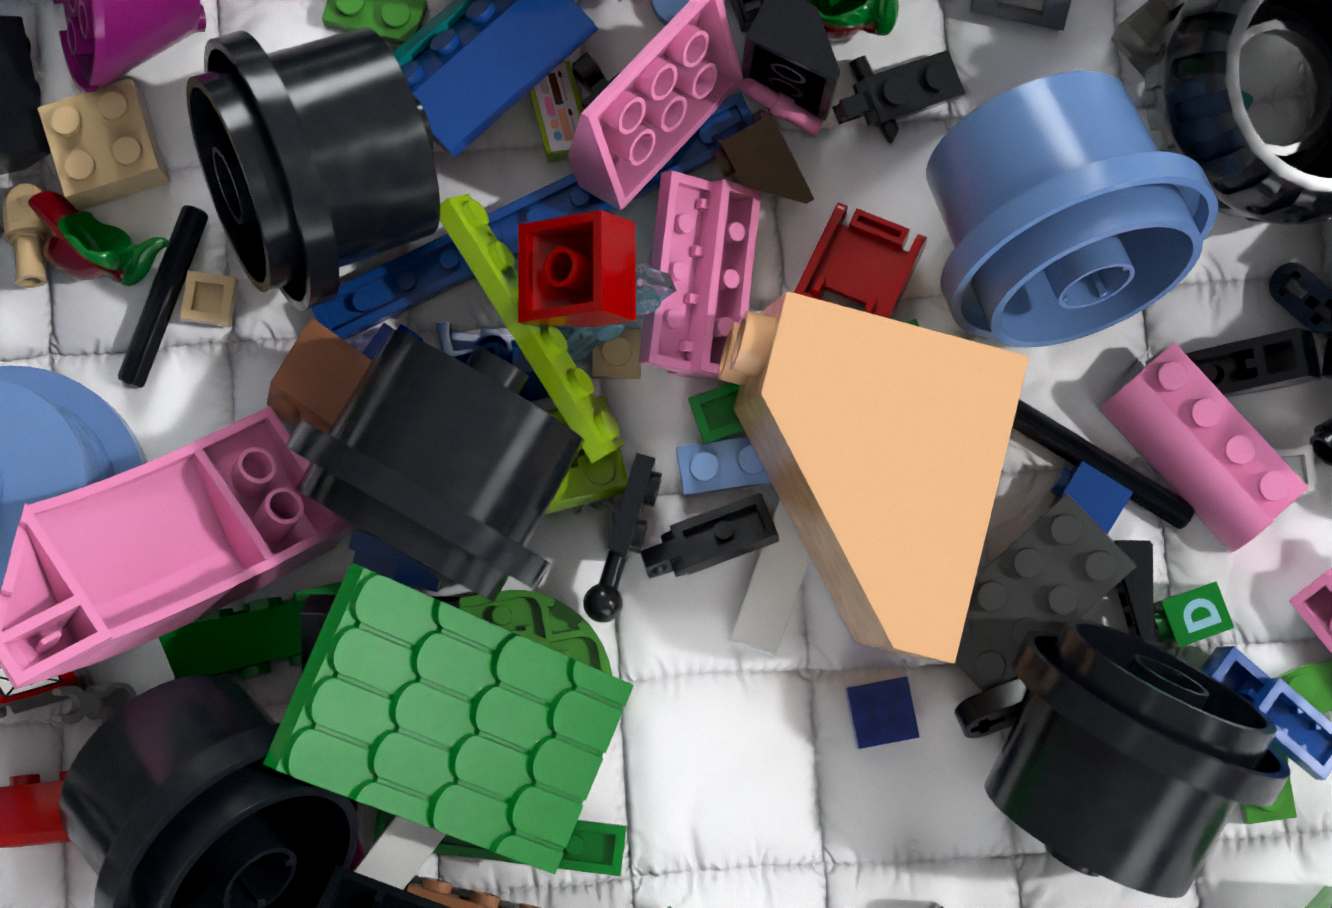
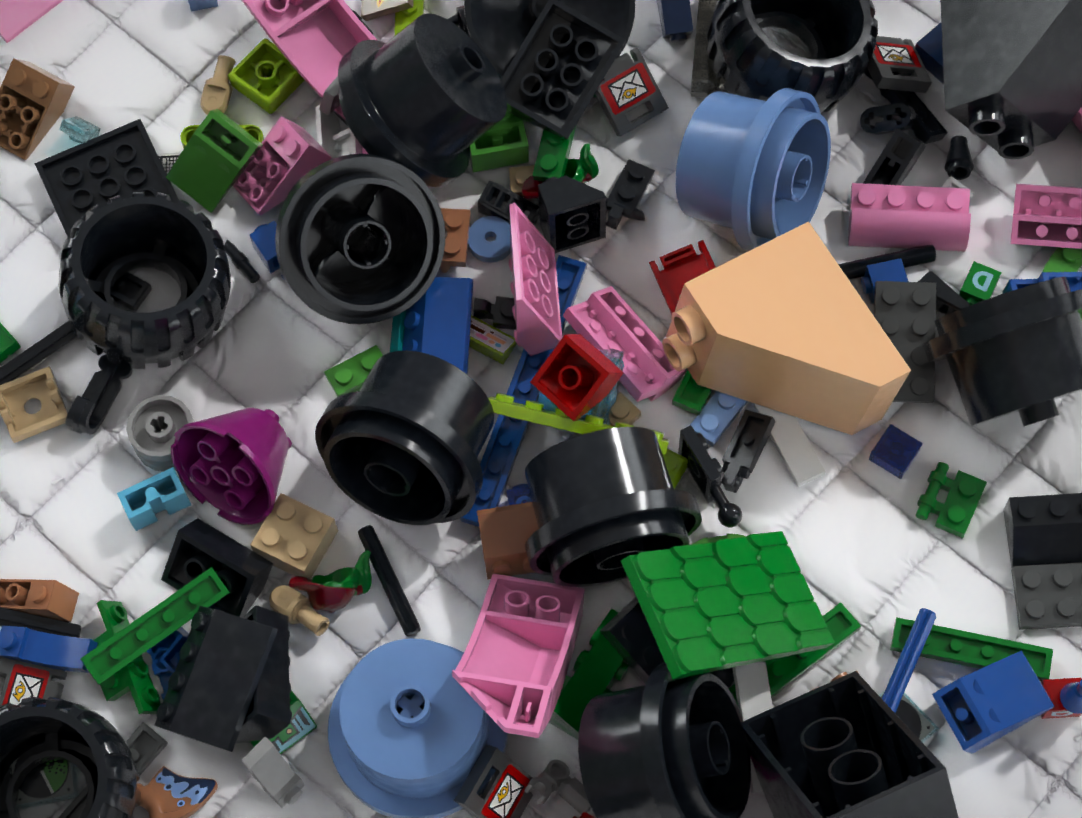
camera: 40 degrees left, 15 degrees down
(209, 299) = (412, 560): tan plate -> none
(390, 562) = (610, 589): blue slope -> none
(760, 158) = (597, 270): dark brown slope -> none
(781, 105) = (582, 245): bright pink piece -> none
(890, 846) = (960, 503): none -> green plate
(991, 709) = (941, 400): black beam -> none

